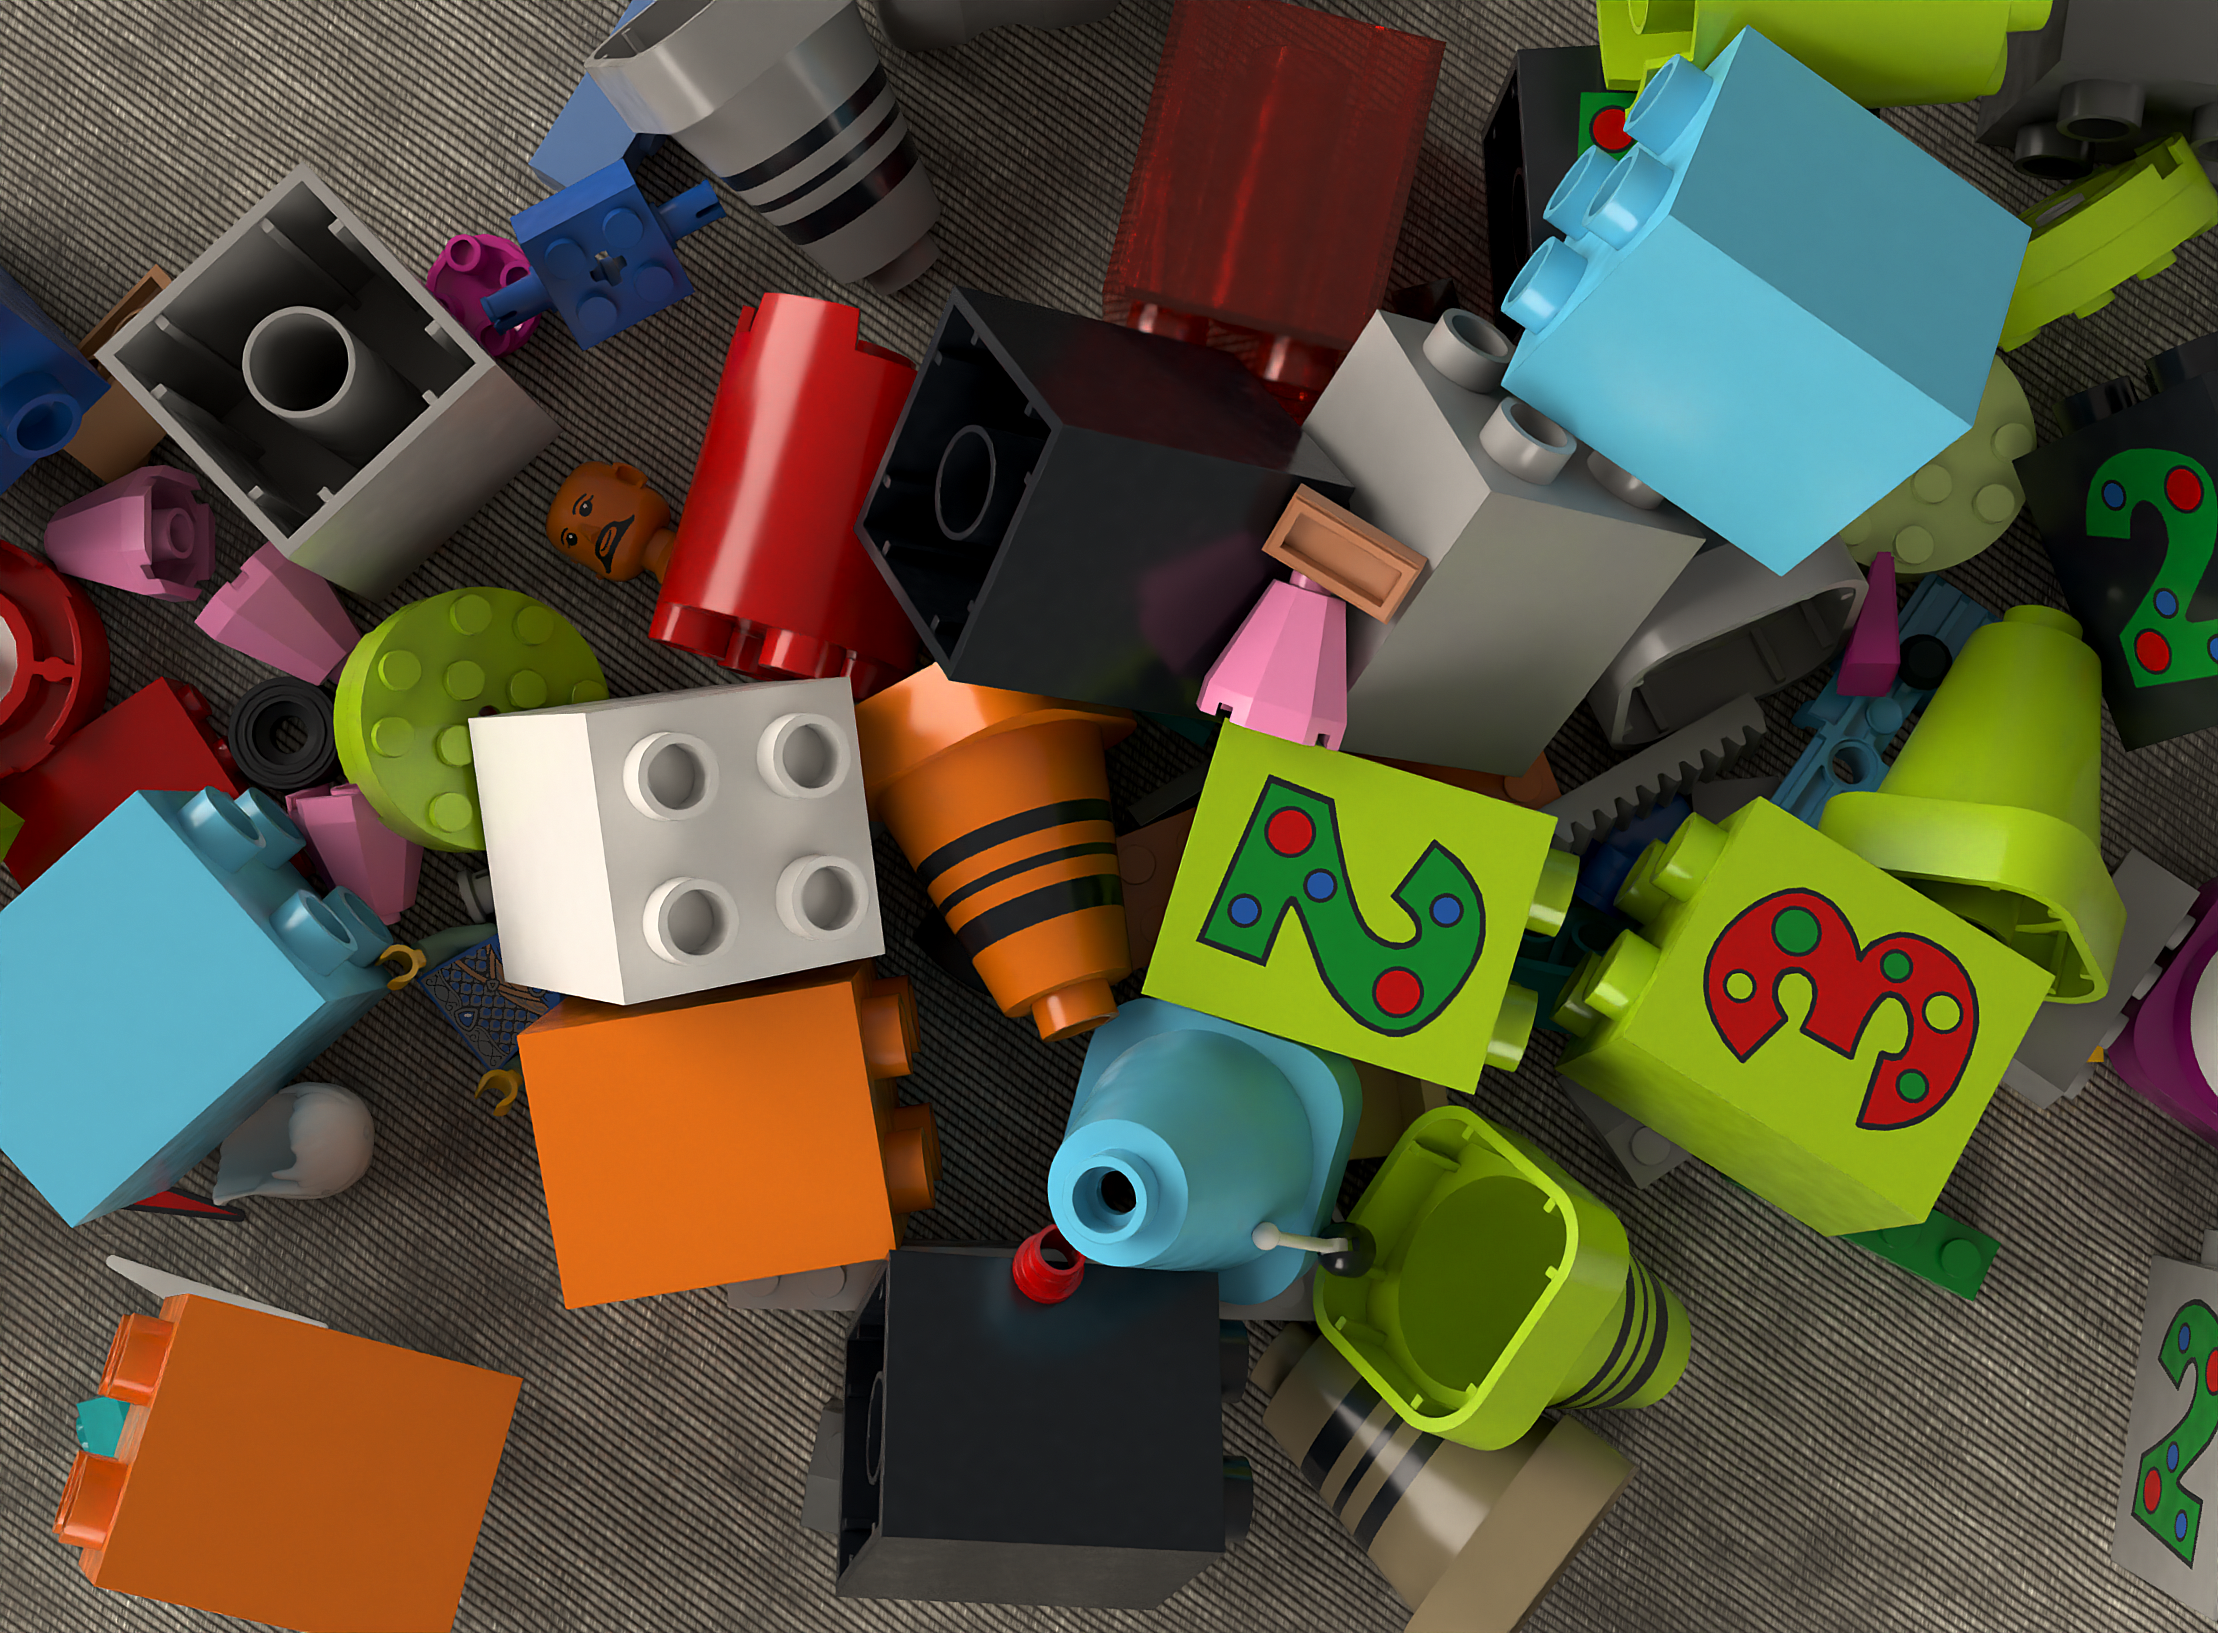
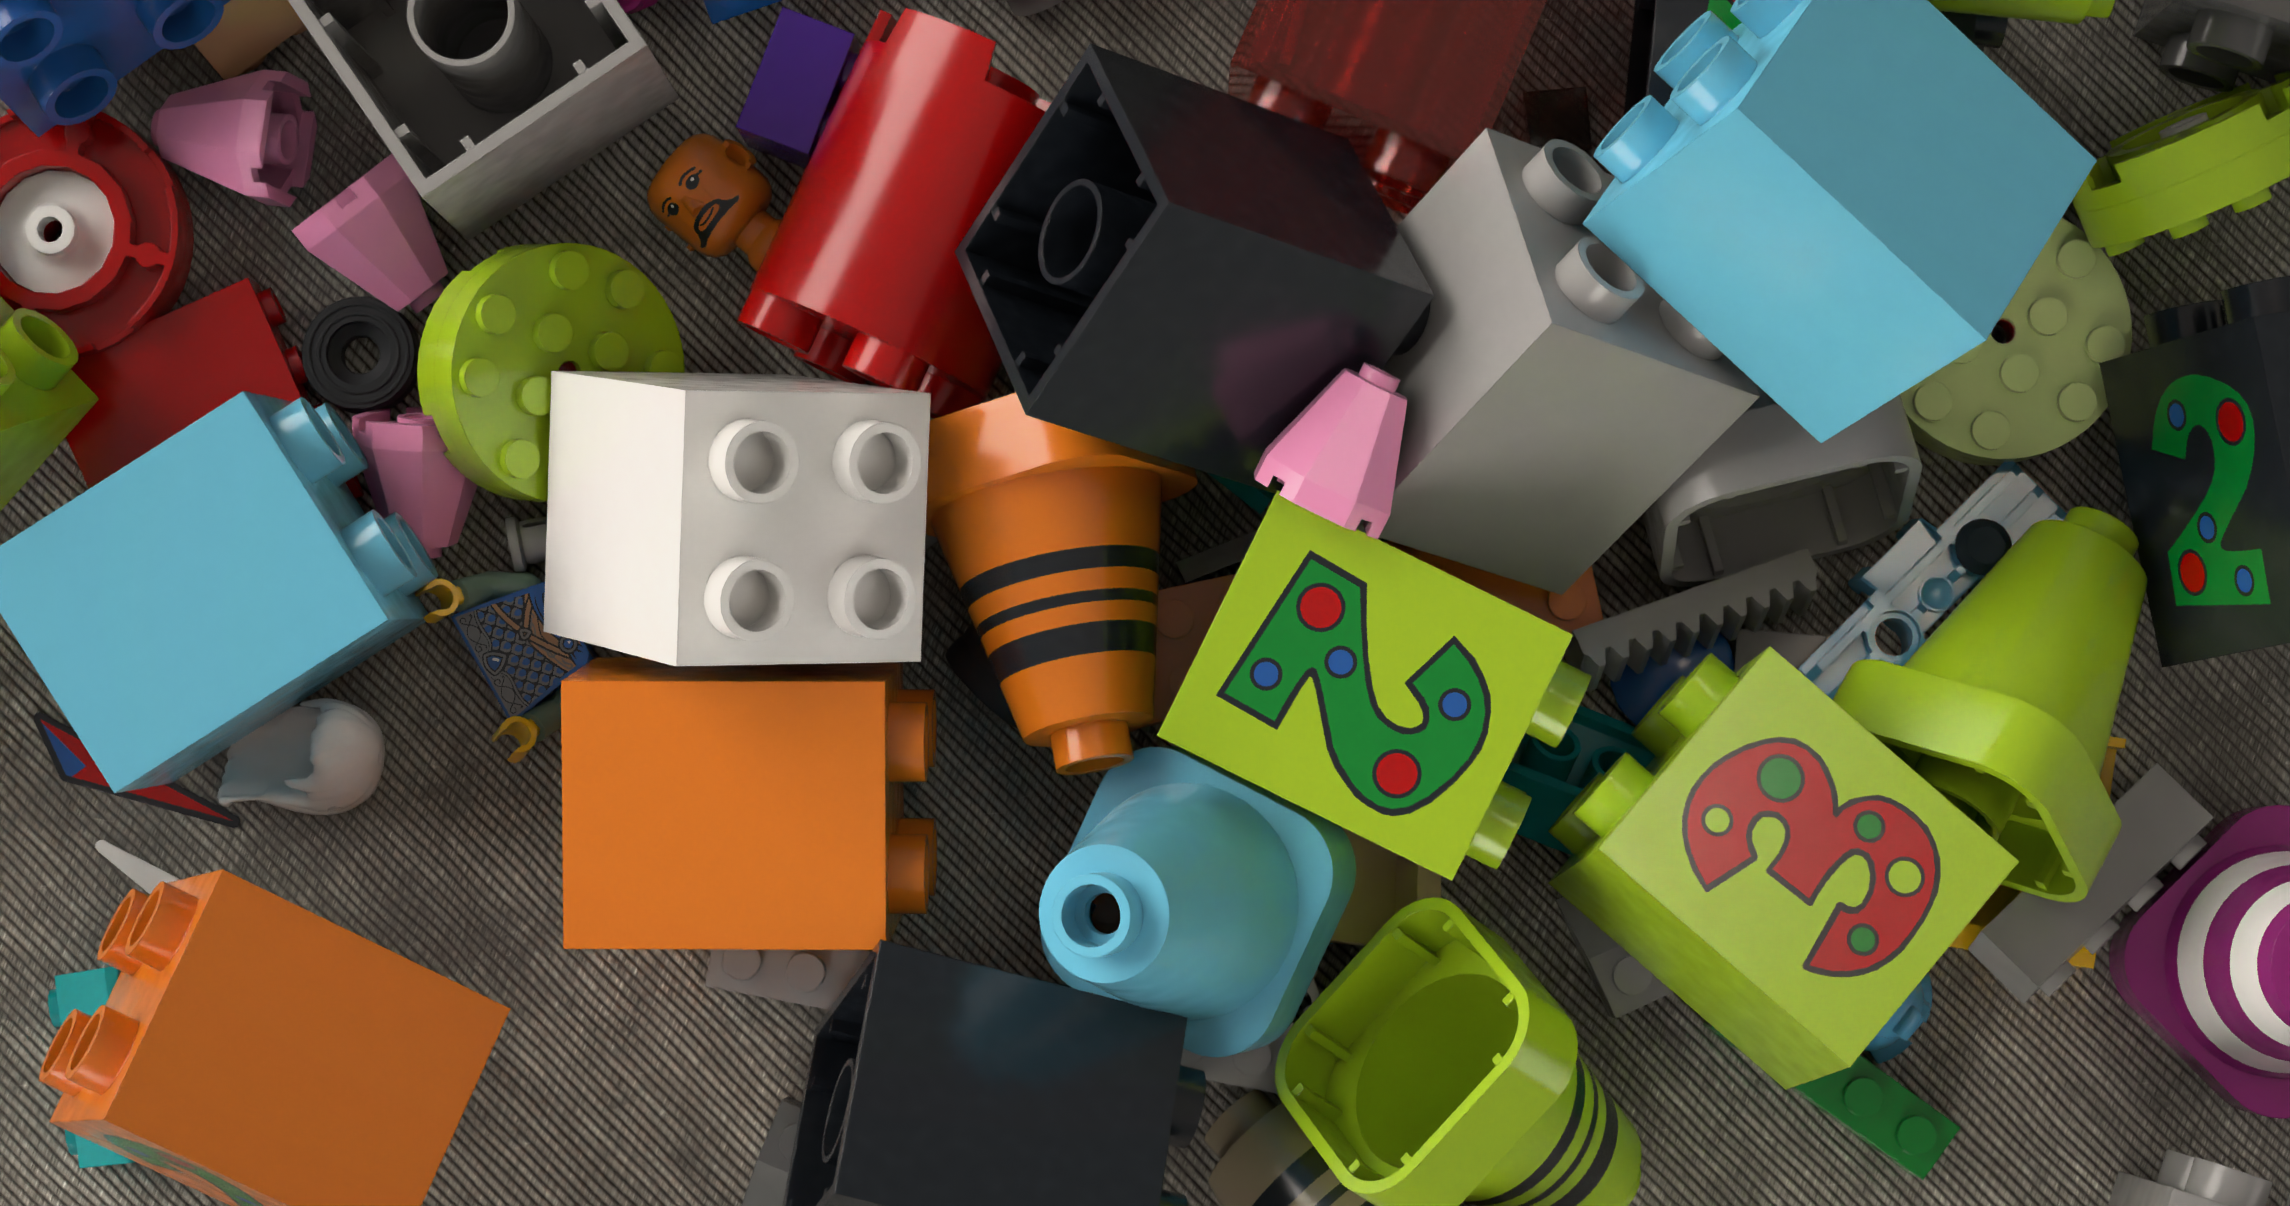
camera: 10 degrees right, 0 degrees up
(671, 396) = (796, 87): none -> dark purple brick
(1039, 1279) = (1020, 992): red piece -> none
(1330, 1246) = (1300, 1012): hinge -> none
(1344, 554) = (1412, 356): nougat tile -> none
(1603, 878) = (1630, 707): blue piece -> none
(1873, 646) = (1928, 526): dark pink slope -> none

